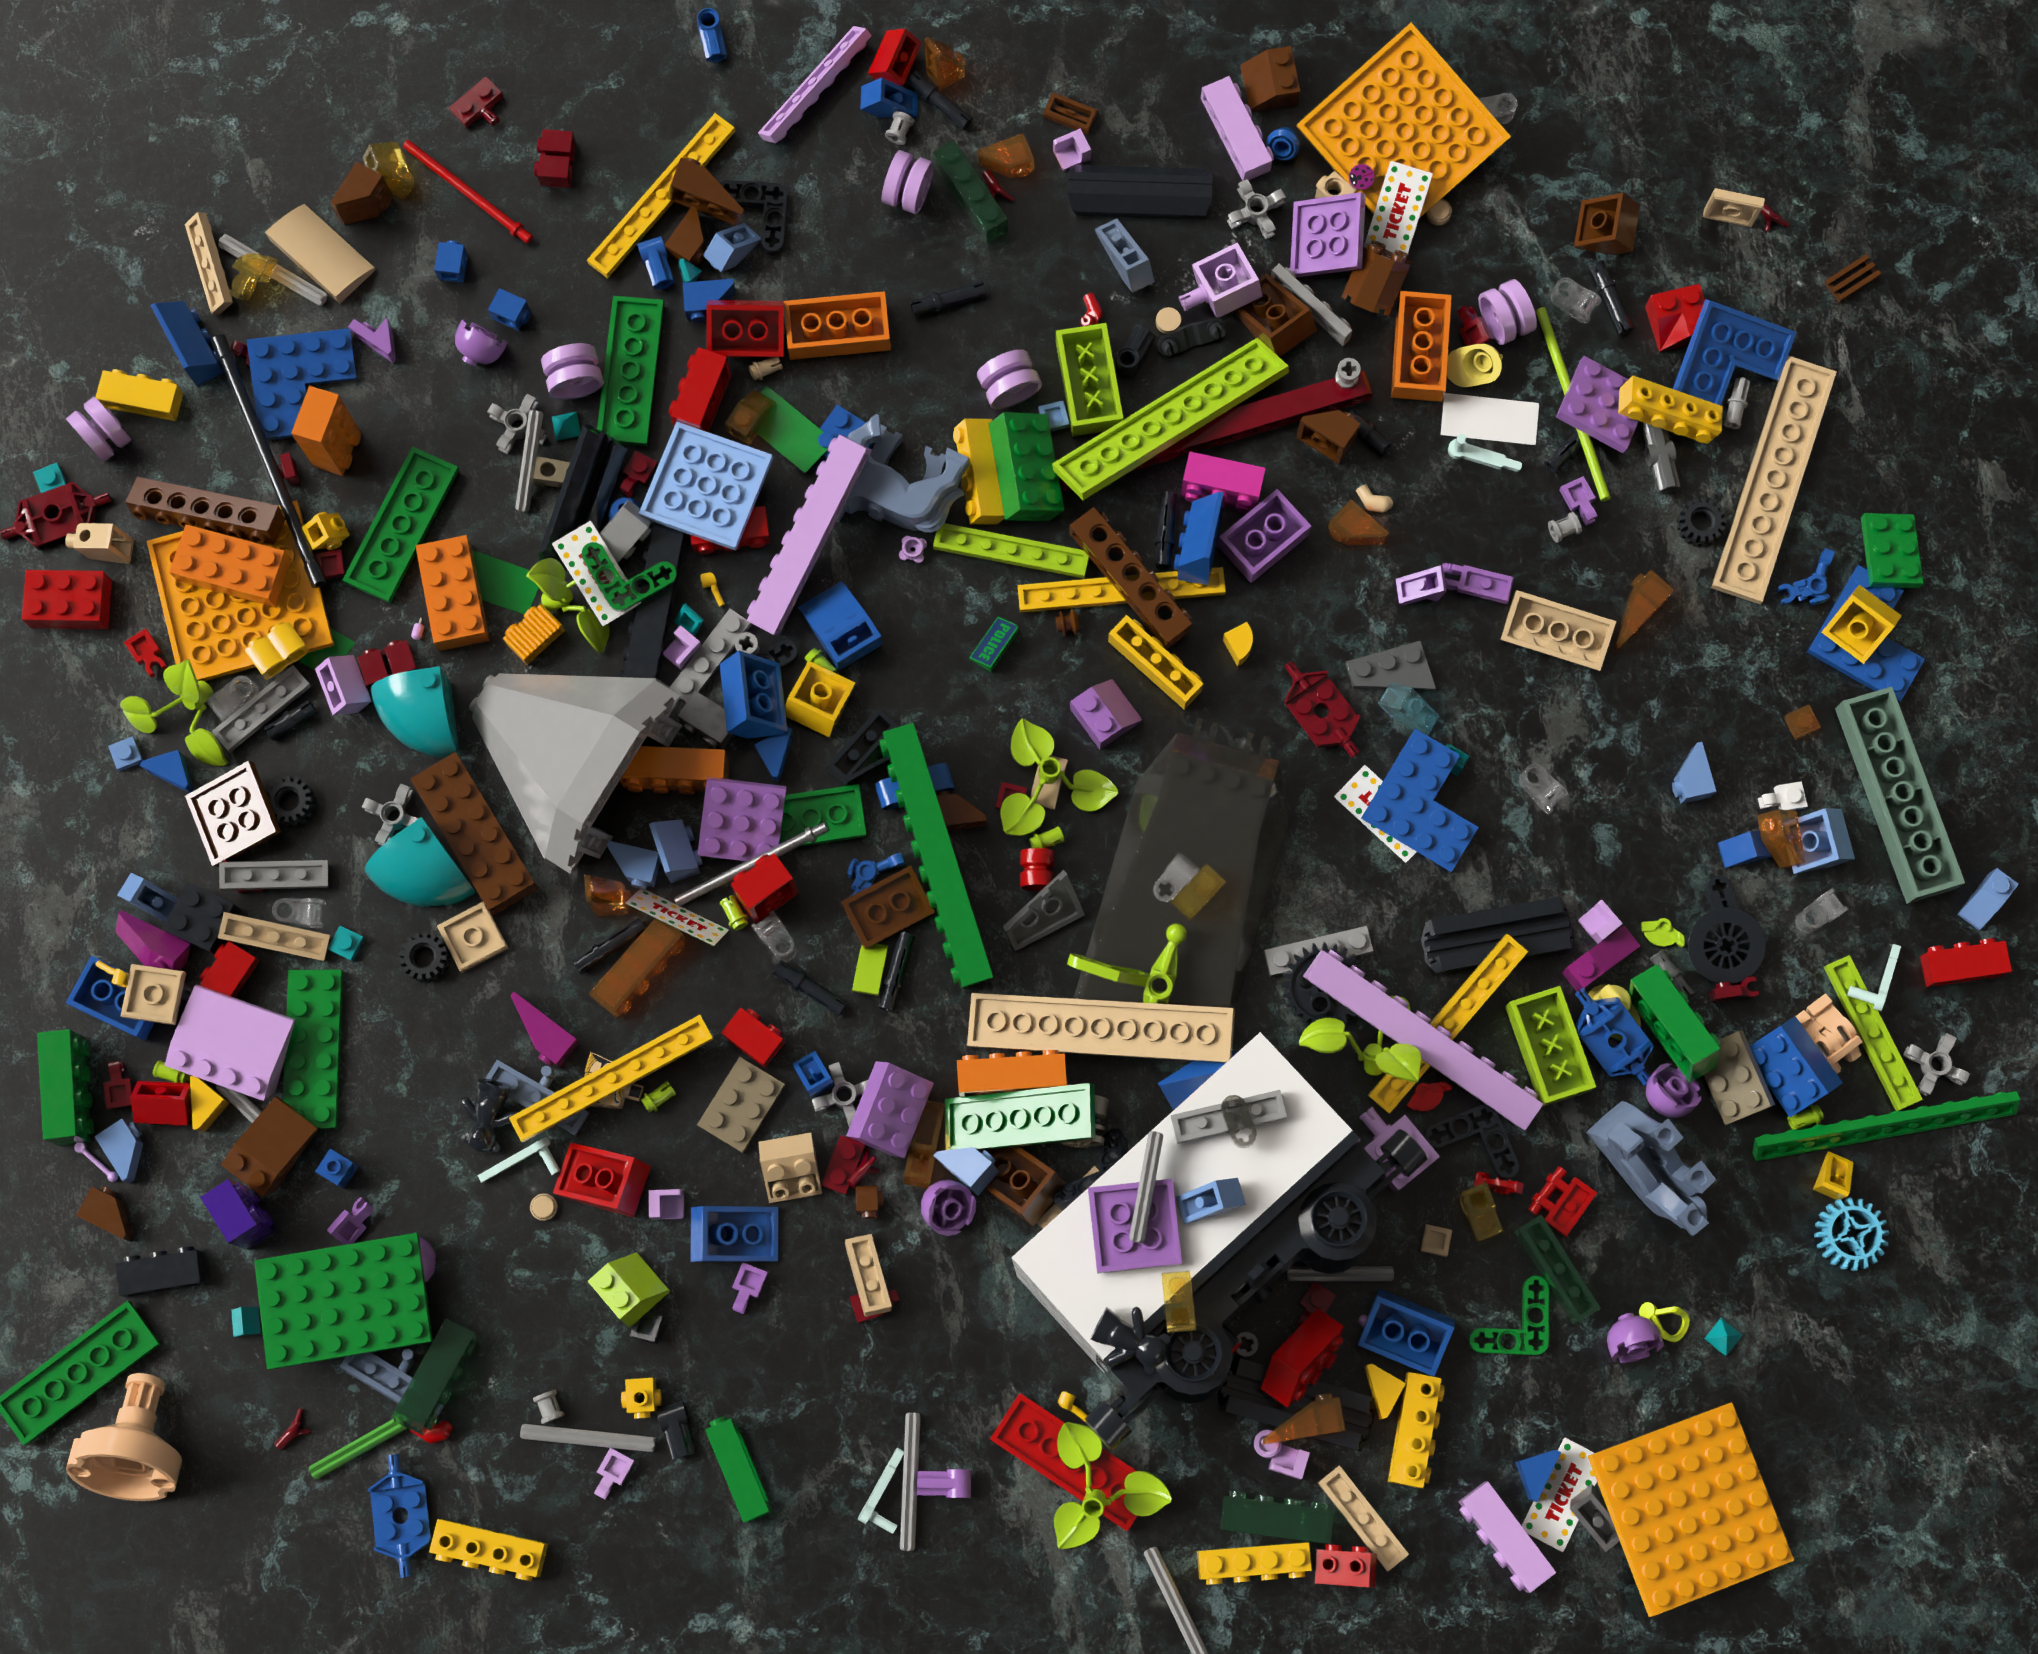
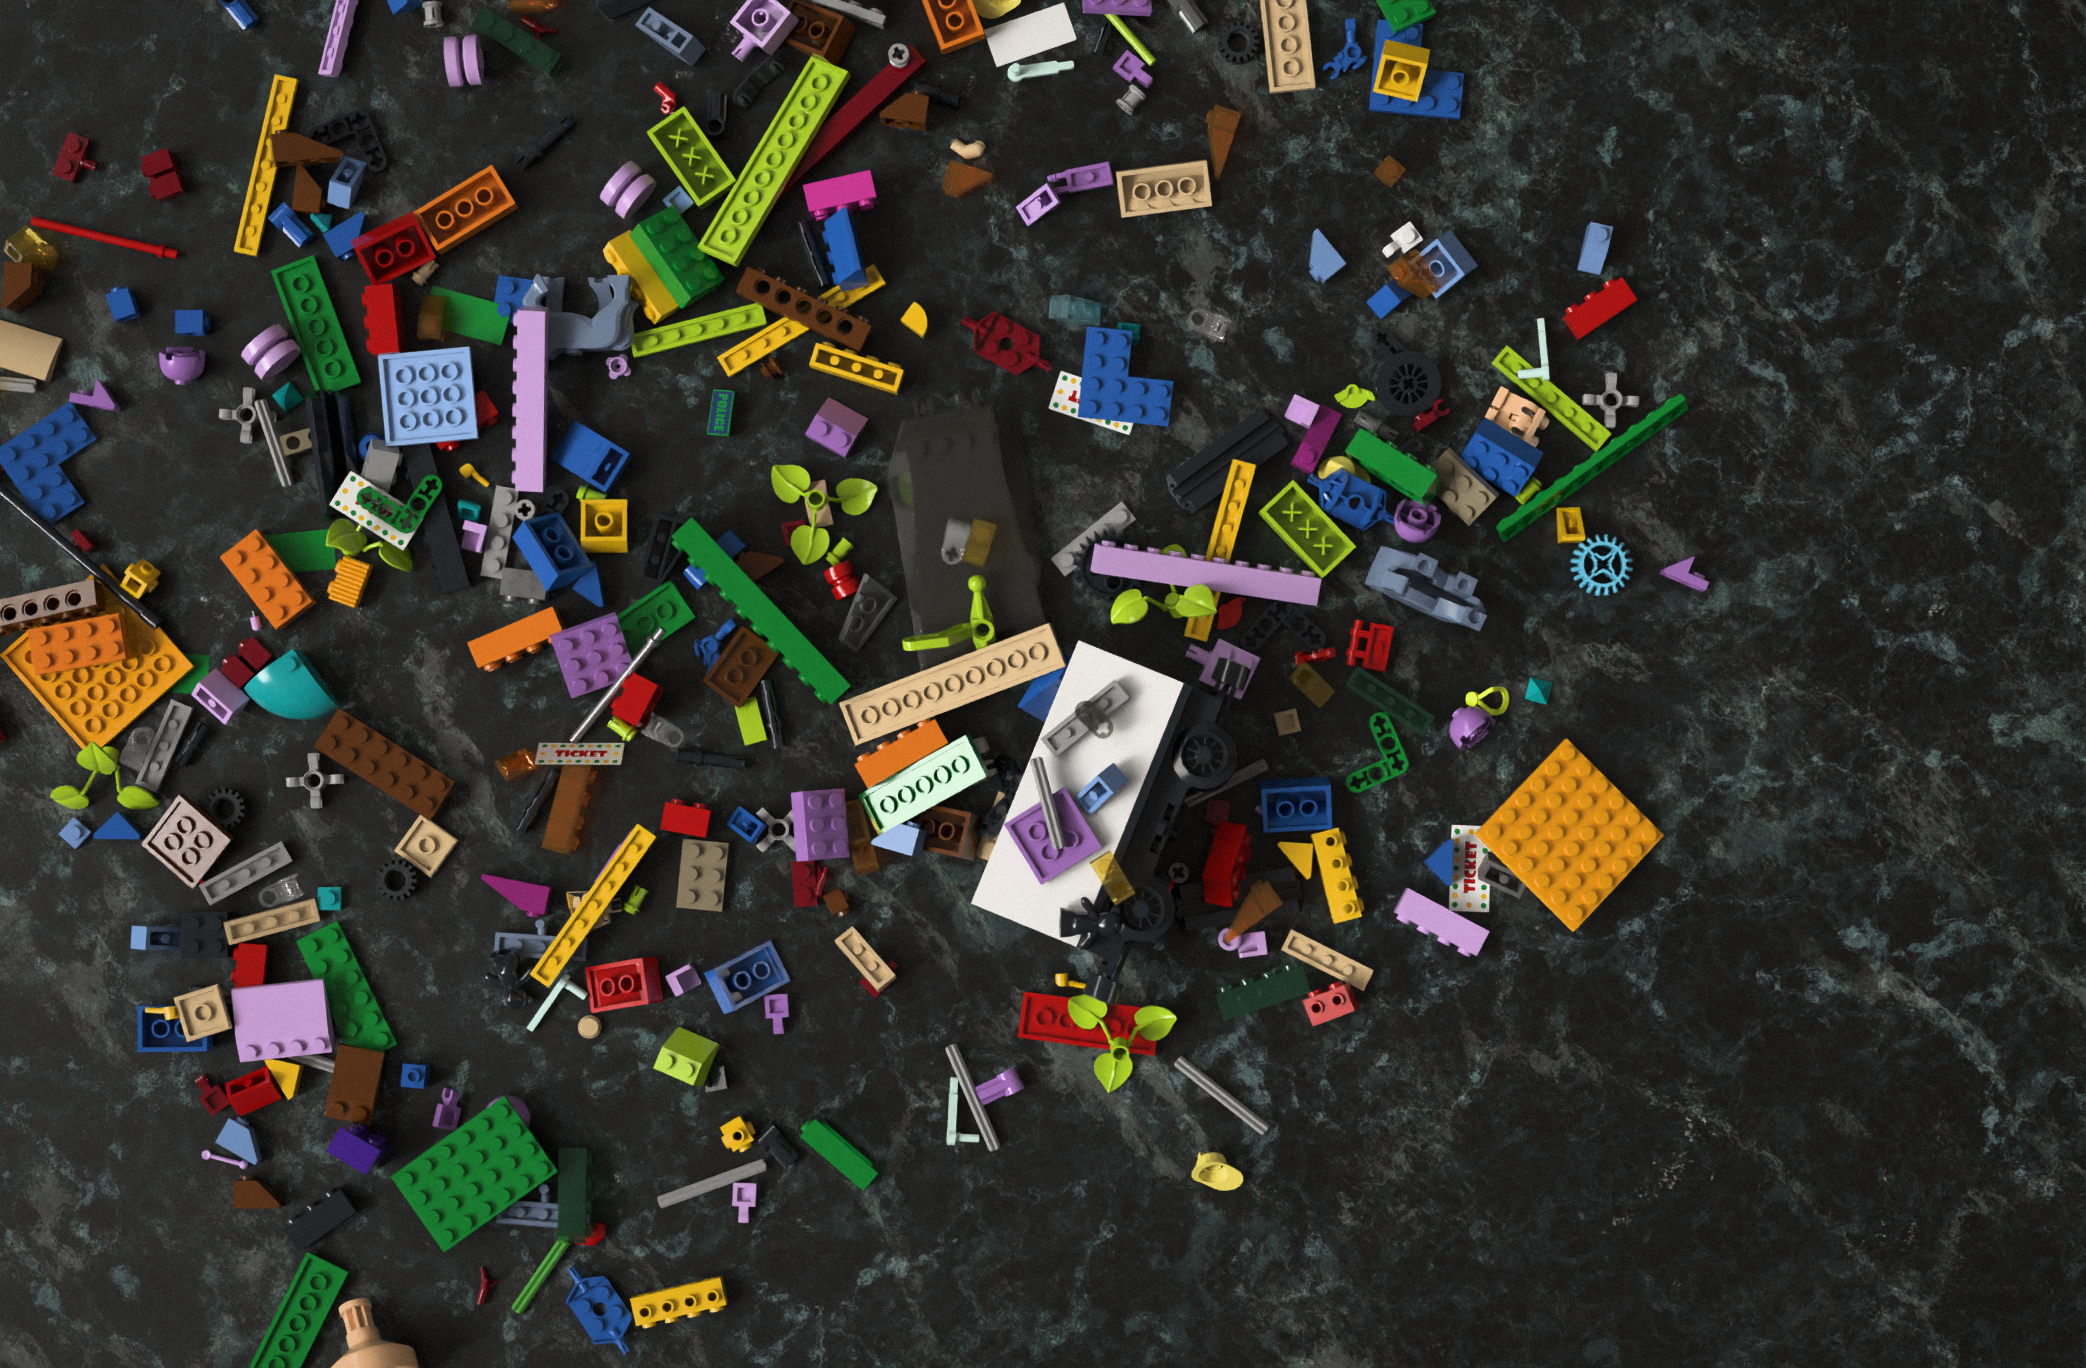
camera: 25 degrees left, 10 degrees up
(64, 1087) = (171, 1116): green brick -> none
(144, 650) = (46, 743): red plate -> none
(152, 944) = (179, 973): magenta slope -> none
(169, 1073) = (238, 1066): lime pin -> none
(246, 1321) = (405, 1223): teal slope -> none
(276, 650) = (153, 694): yellow brick -> none
(326, 431) = (100, 500): orange brick -> none
(331, 563) = (158, 601): dark red plate -> none
(401, 525) = (197, 543): green plate -> none
(418, 869) = (358, 814): teal brick -> none
(548, 1406) = (671, 1174): light grey bush -> none
(567, 747) = (428, 664): light grey piece -> none
(637, 864) = (526, 727): medium blue slope -> none
(638, 471) = (365, 406): dark red plate -> none
(675, 849) = (552, 701): medium blue slope -> none
(790, 1167) = (764, 905): tan slope -> none
(948, 1207) = (901, 878): medium lavender cylinder -> none
(1168, 320) = (732, 75): tan piece -> none
(1254, 1560) = (1265, 1028): yellow brick -> none
(1264, 535) = (894, 222): medium lavender brick -> none
(1398, 665) = (1051, 278): dark grey wing -> none
(1823, 909) = (1471, 317): clear piece -> none
(1899, 795) = (1490, 196): sand green brick -> none
(1934, 1285) = (1680, 573): none -> medium lavender slope

